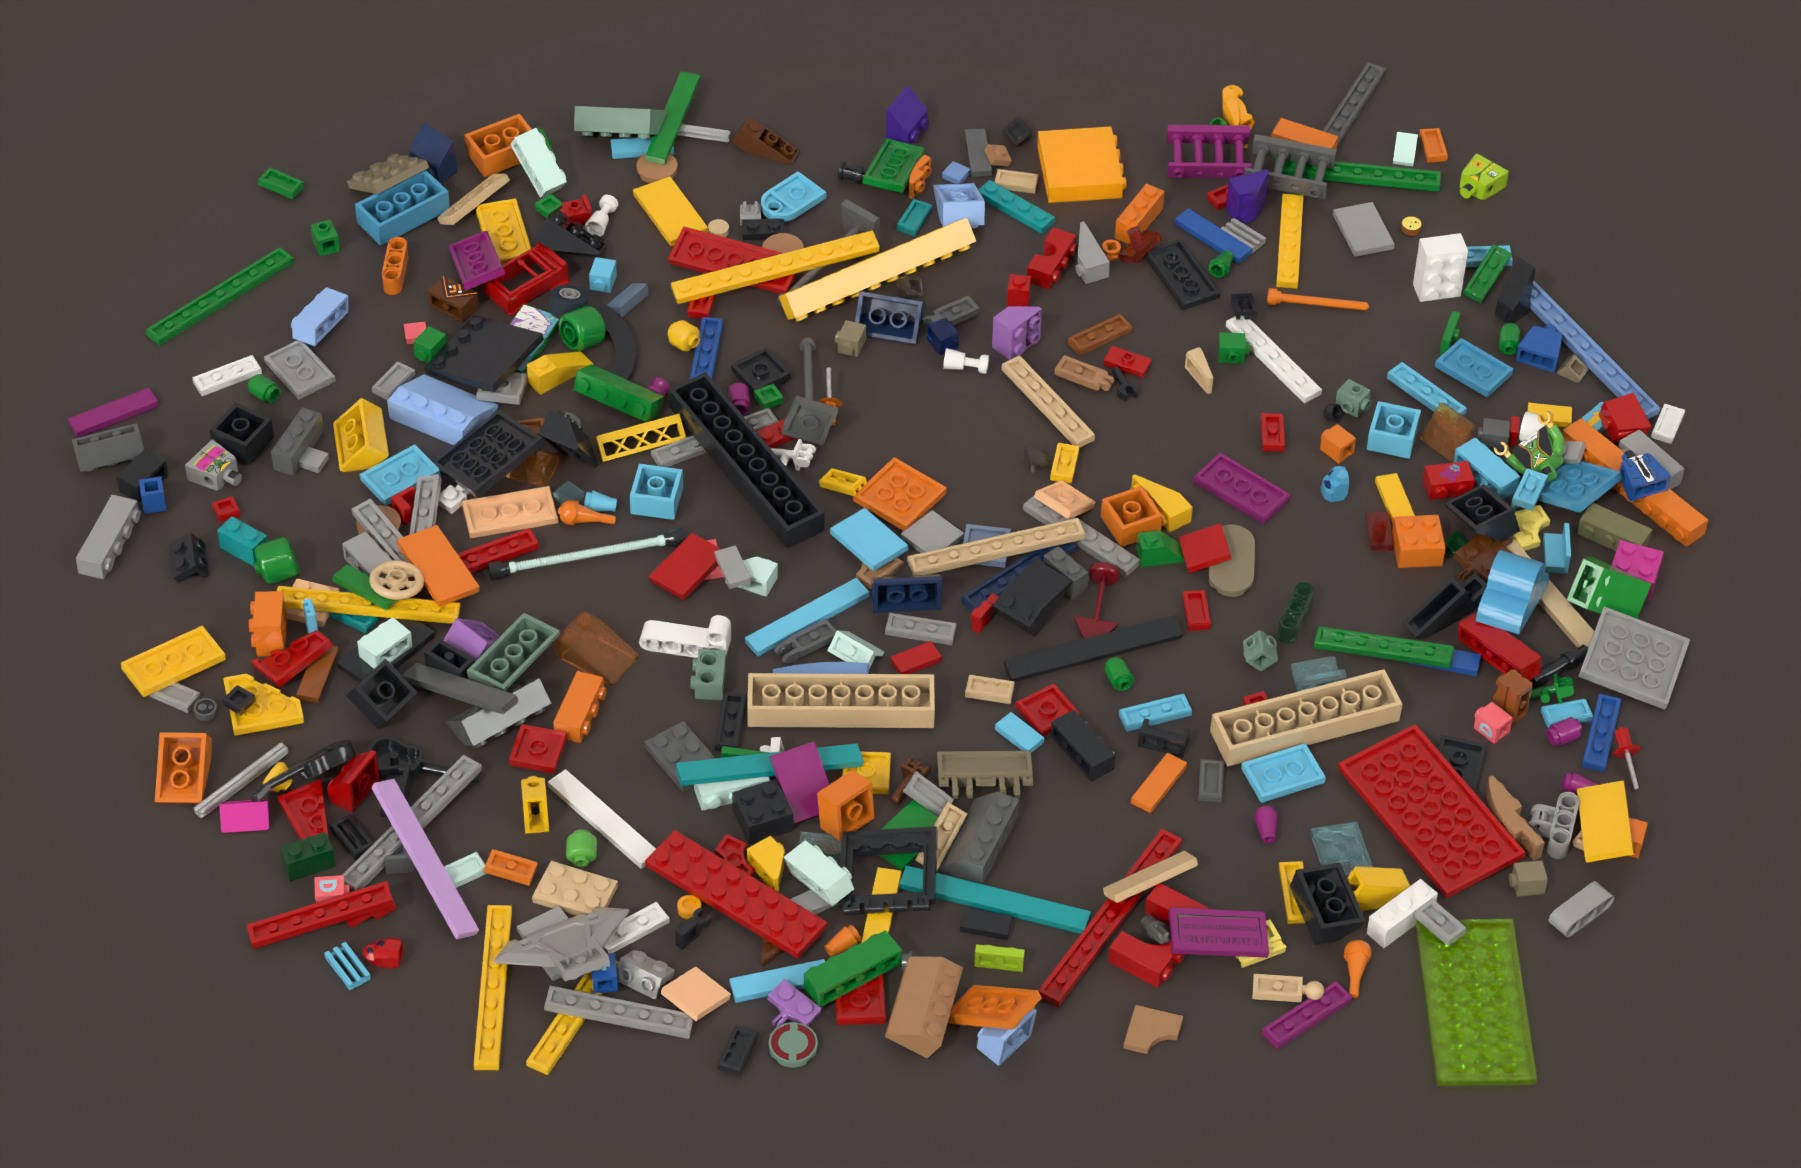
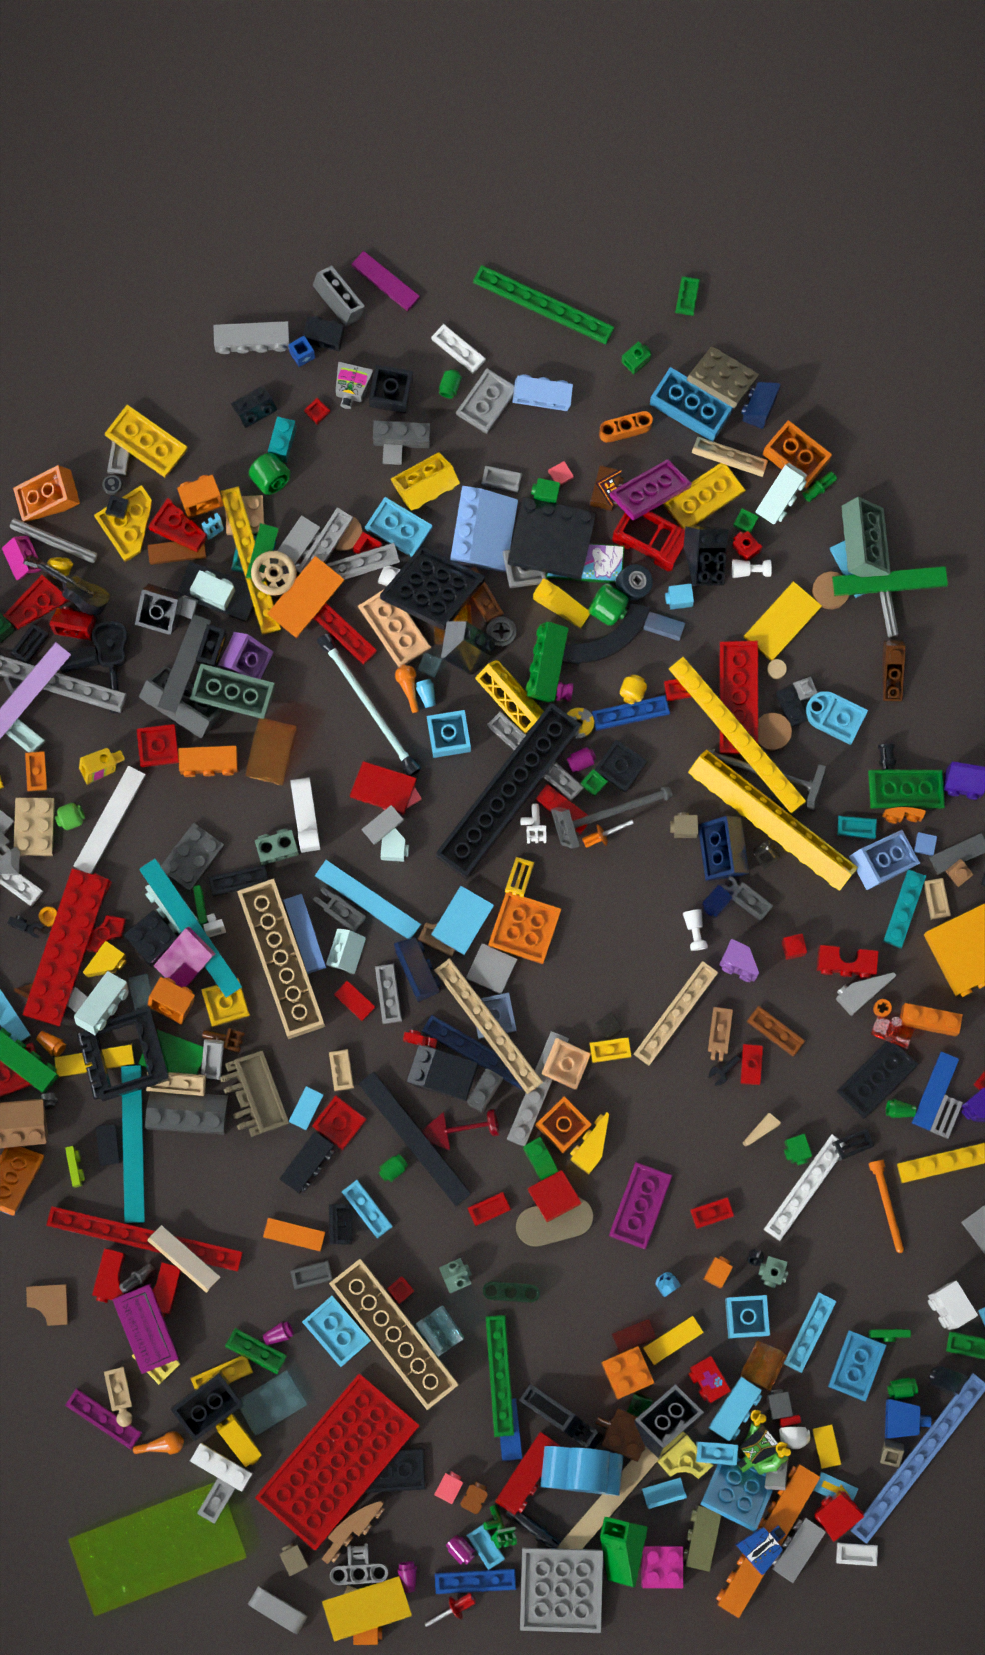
camera: 70 degrees right, 30 degrees up
(1279, 850) = (256, 1351): none -> green tile

